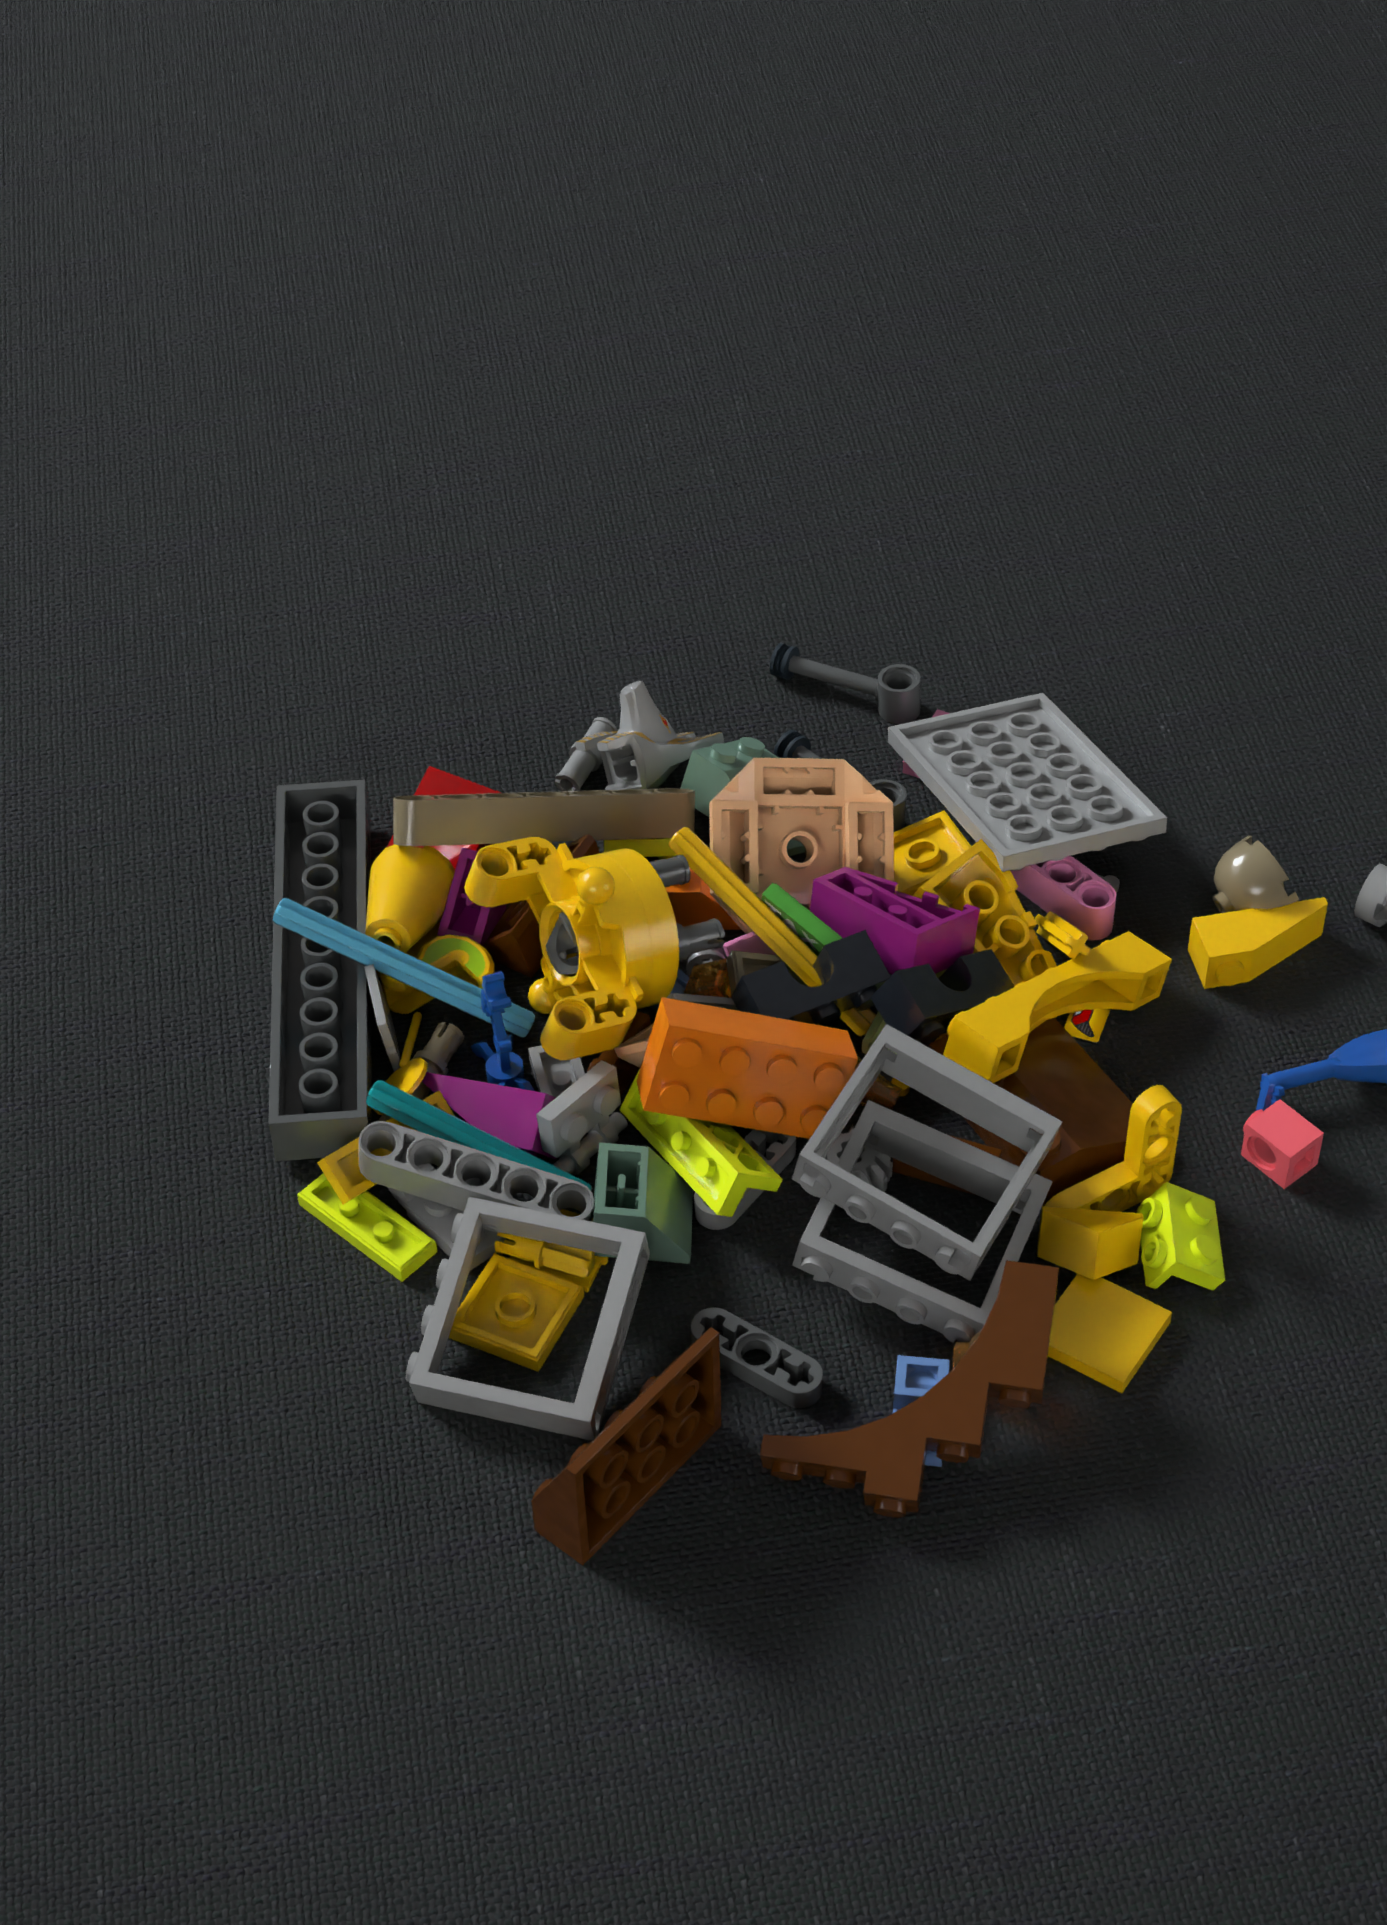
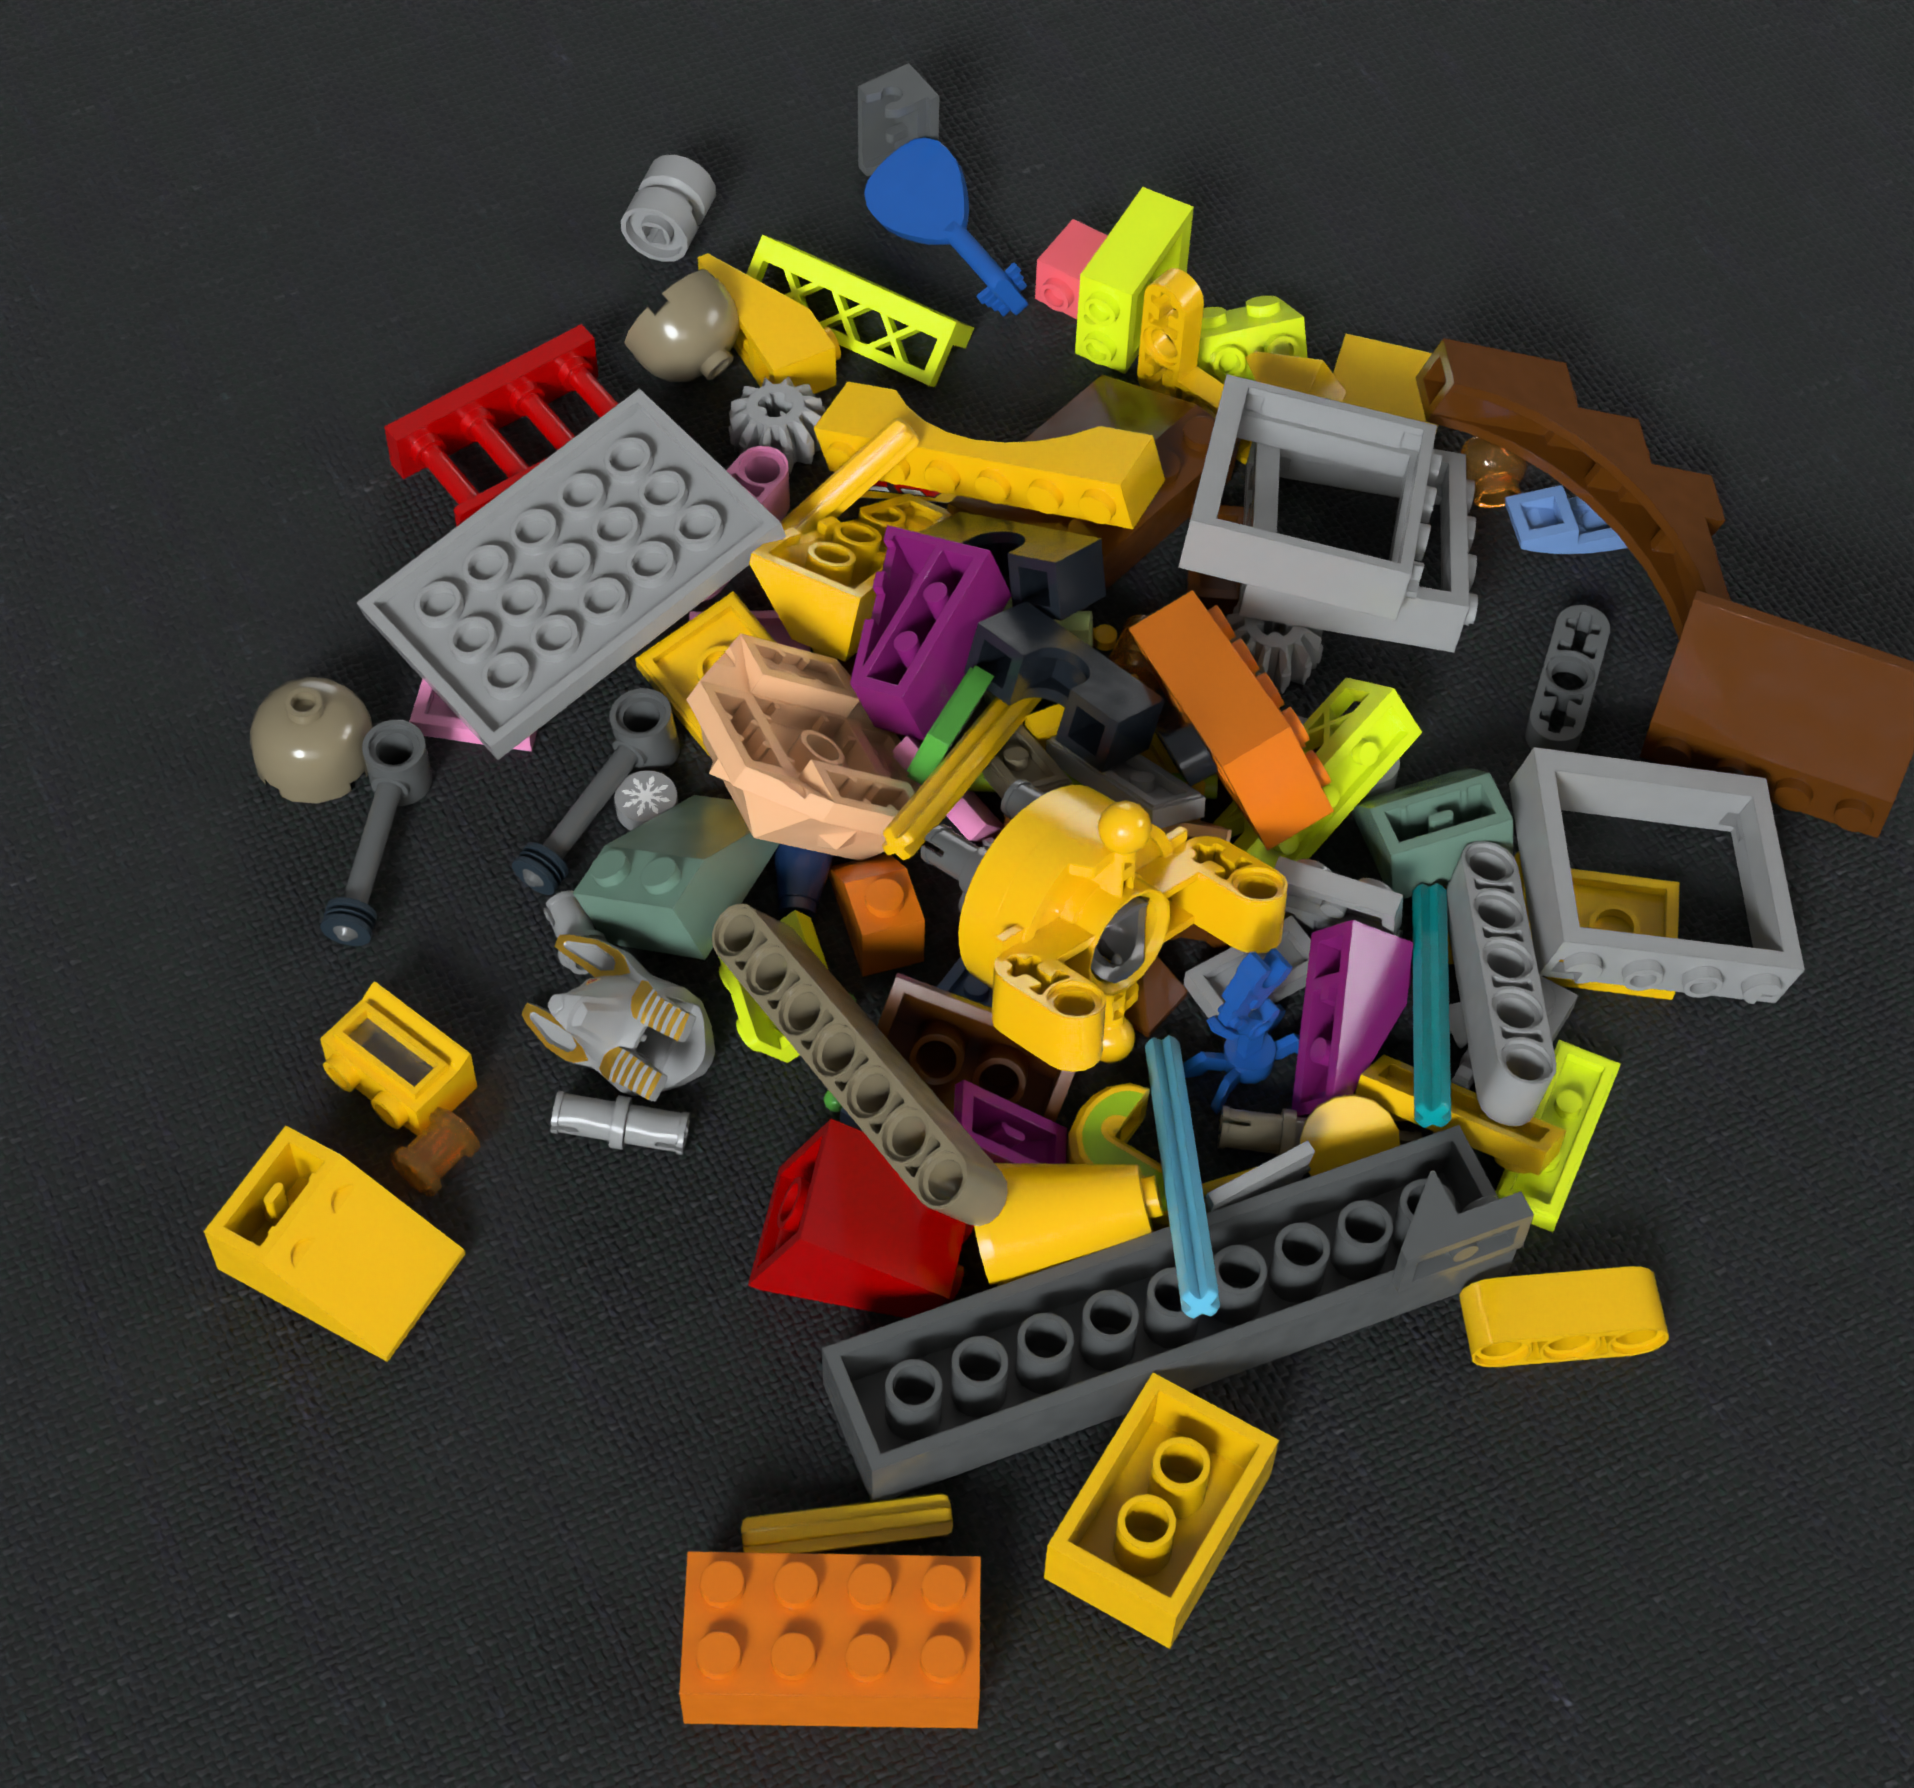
camera: 110 degrees left, 10 degrees up
(197, 925) = (1160, 1510): none -> yellow brick
(202, 779) = (831, 1640): none -> orange brick
(224, 1172) = (1563, 1316): none -> yellow beam
(264, 830) = (849, 1525): none -> yellow axle
(280, 1062) = (1446, 1241): none -> dark grey slope
(553, 618) = (331, 1244): none -> yellow slope
(595, 669) = (435, 1151): none -> clear orange bush
(671, 658) = (397, 1061): none -> yellow window
(942, 658) = (310, 739): none -> dark tan cylinder
(1154, 921) = (777, 418): none -> light grey gear
(1200, 768) = (490, 403): none -> red fence
(1256, 1134) = (1112, 286): none -> neon yellow window
(1276, 1003) = (870, 297): none -> neon yellow fence

